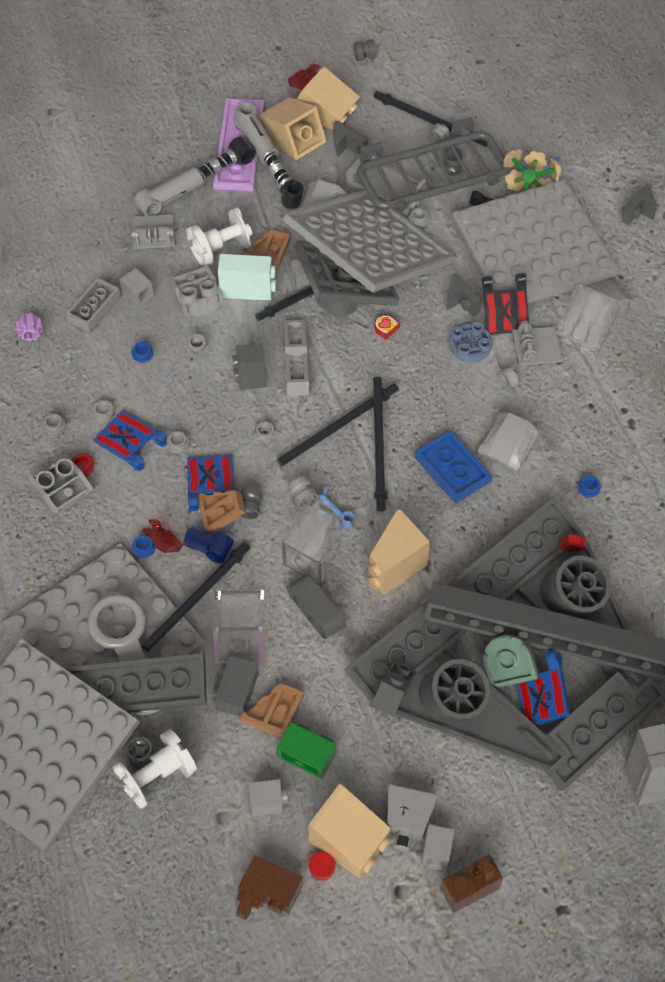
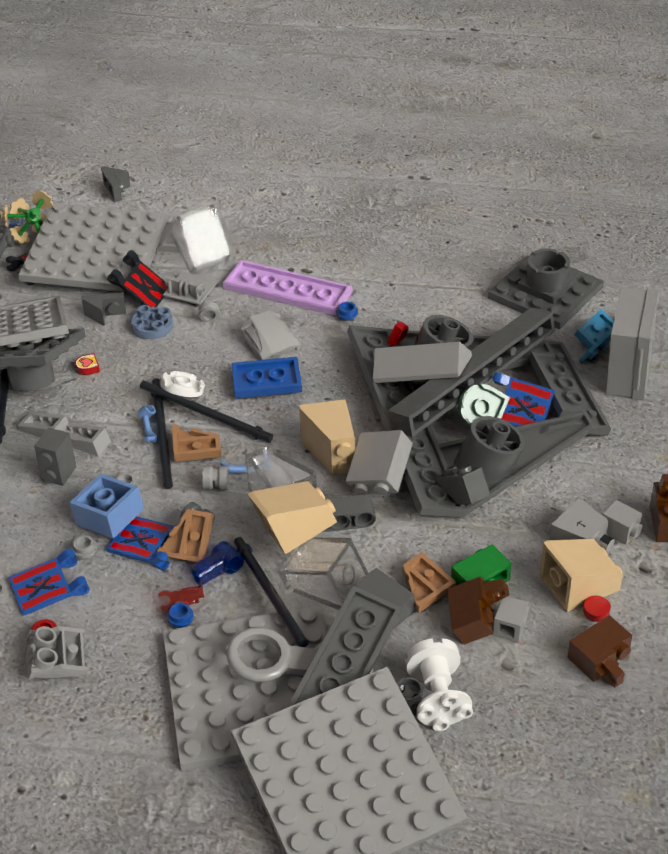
camera: 60 degrees left, 15 degrees down
(220, 432) = (106, 505): none -> medium blue brick
(255, 760) = (472, 607): none -> reddish brown hinge
(271, 568) = (293, 513): none -> tan slope
(334, 455) = (195, 444): none -> medium nougat wing
(347, 402) = (145, 413): none -> medium blue piece
(381, 607) = (379, 462): none -> light grey brick
(399, 408) = (182, 384): none -> white tile
(520, 581) = (420, 362): none -> light grey slope
(593, 421) = (287, 287): none -> lavender tile

